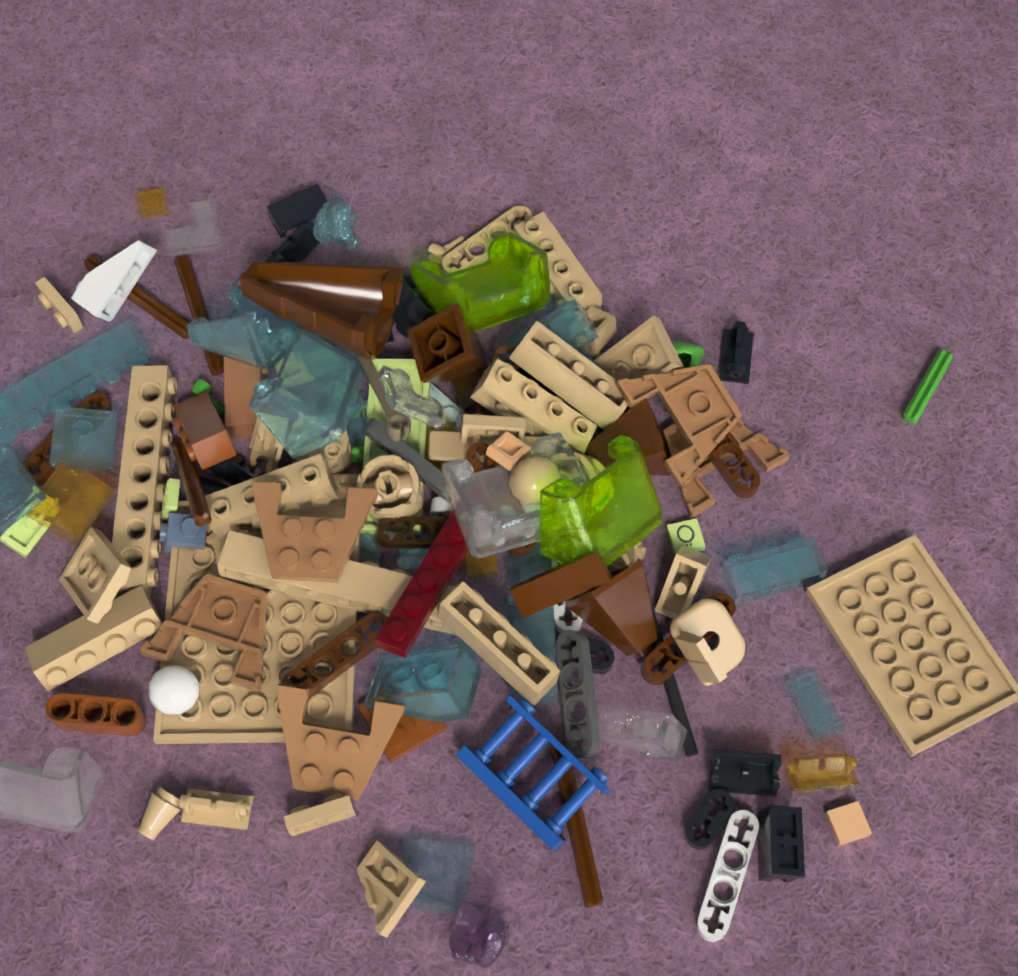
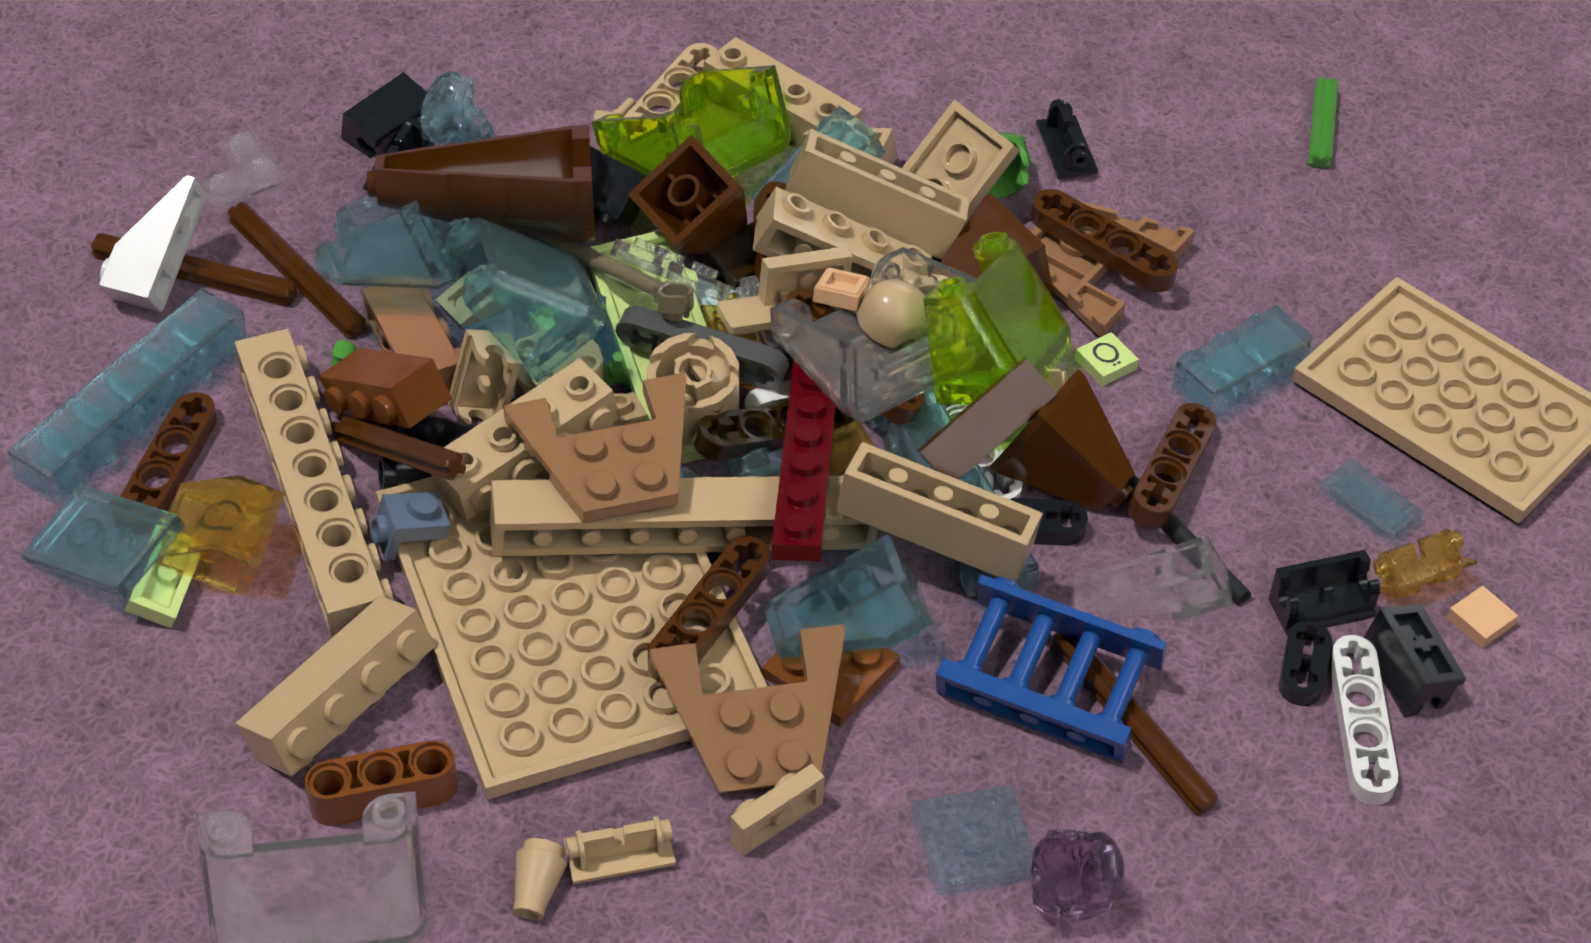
camera: 25 degrees left, 15 degrees down
(52, 299) = (78, 302): tan plate -> none
(83, 439) = (195, 446): clear light blue tile -> none
(95, 575) = (307, 596): tan plate -> none
(152, 203) = (160, 156): clear yellow plate -> none
(170, 498) = (370, 483): yellowish green tile -> none
(173, 689) = (489, 711): white hair -> none
(222, 615) = (520, 602): medium nougat wing -> none
(388, 886) = (919, 859): tan wing -> none
(583, 692) = (1067, 558): dark grey beam -> none
(682, 582) = (1135, 403): tan slope -> none
(688, 631) = (1203, 454): tan piece -> none
(697, 406) = (1055, 189): medium nougat wing -> none

